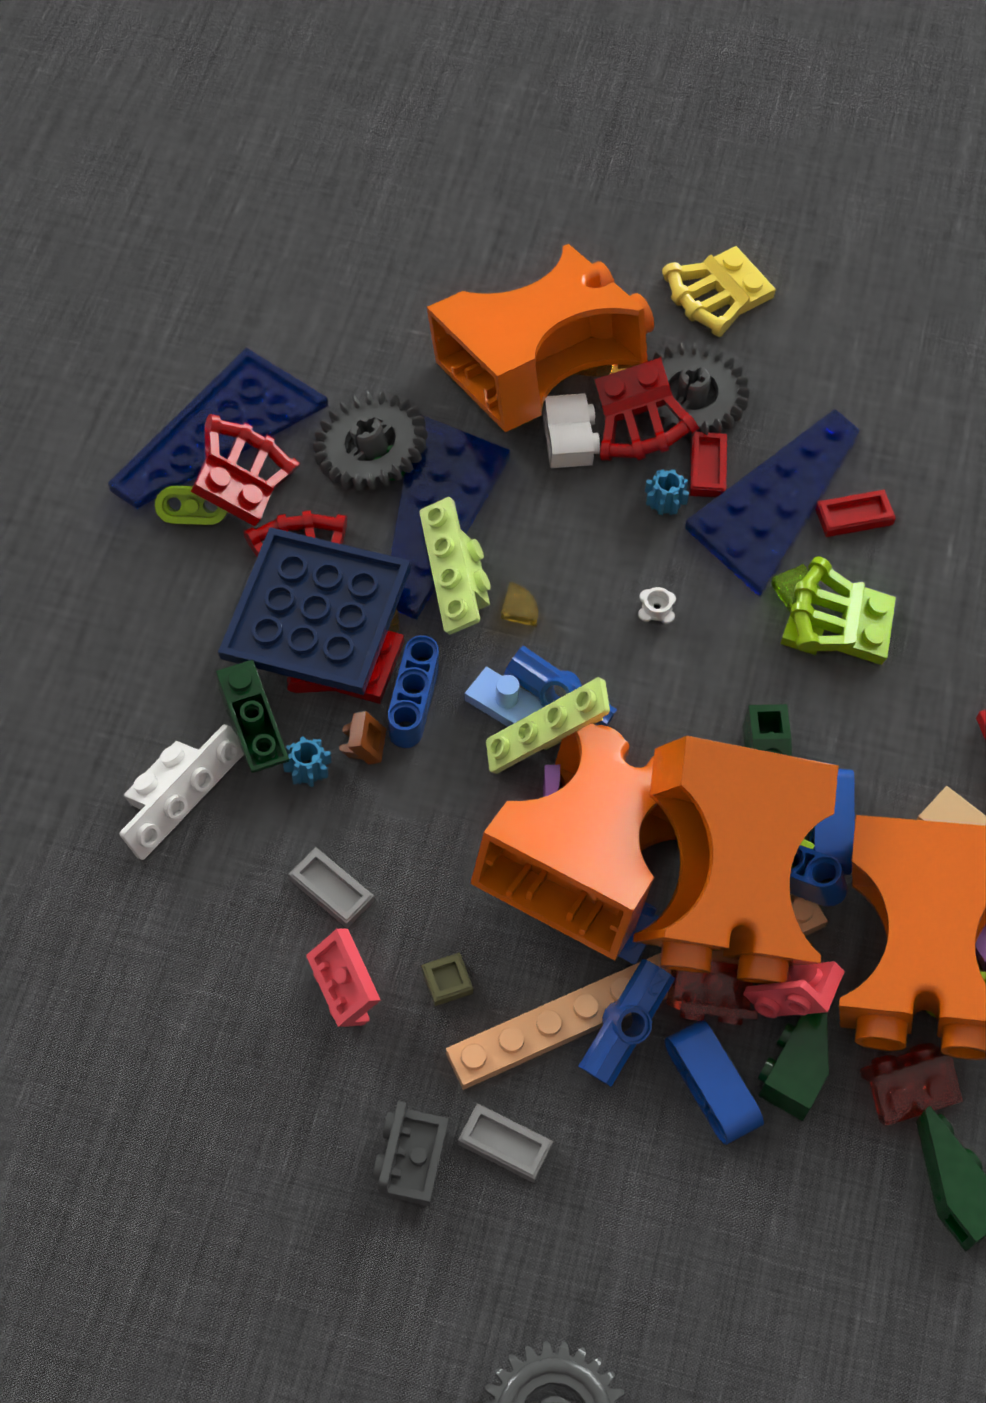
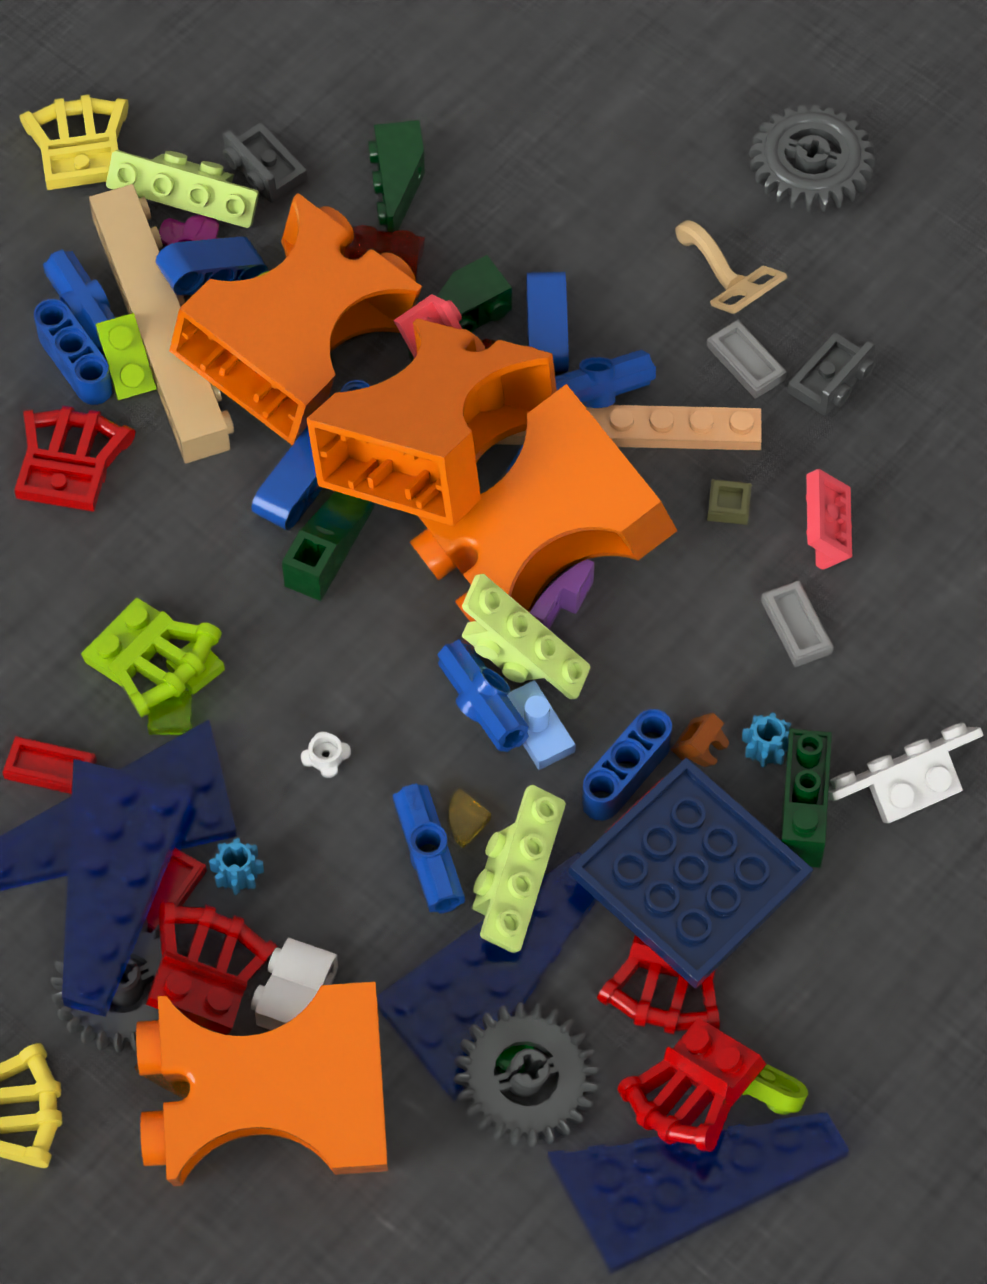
camera: 150 degrees left, 0 degrees up
(546, 575) = (435, 868): none -> blue piece
(557, 1223) = (735, 284): none -> tan piece
(752, 449) = (117, 857): none -> clear blue wing

